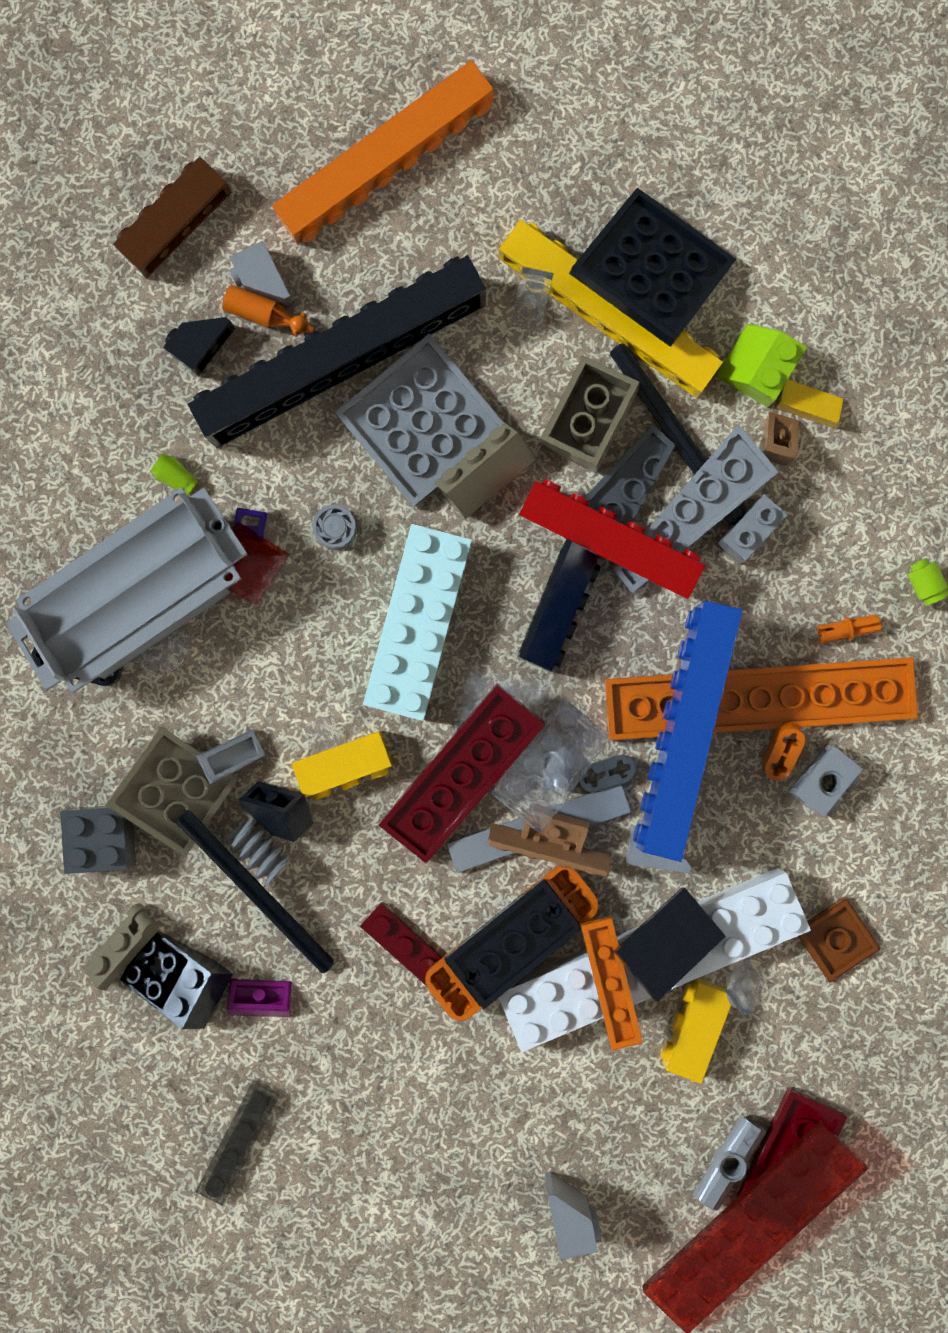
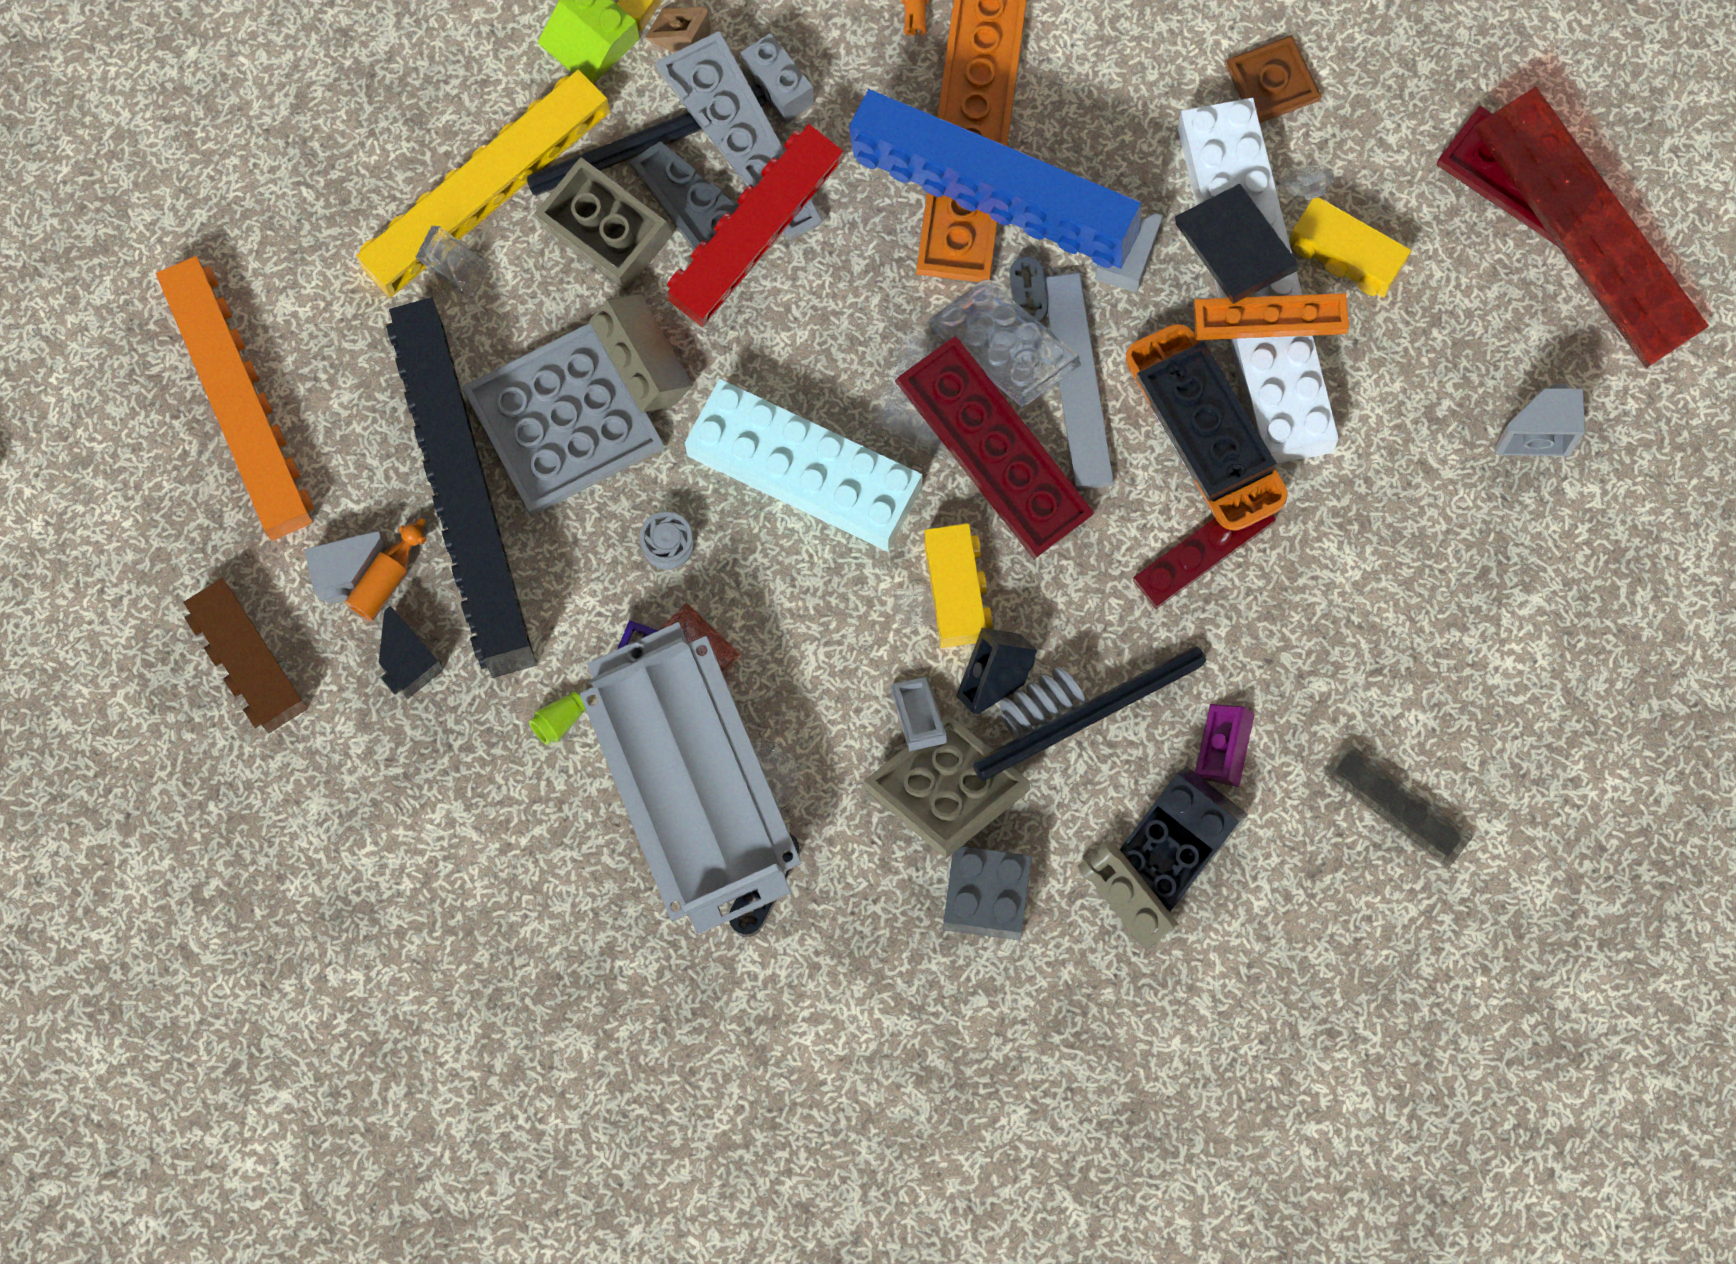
camera: 75 degrees left, 15 degrees down
(558, 606) = (819, 304): black slope -> none
(558, 843) = (1099, 354): medium nougat bracket -> none
(652, 266) = (449, 122): black plate -> none
(720, 1179) = (1530, 257): light grey piece -> none
(779, 750) = (1041, 93): orange beam -> none
(809, 788) = (1089, 74): light grey brick -> none

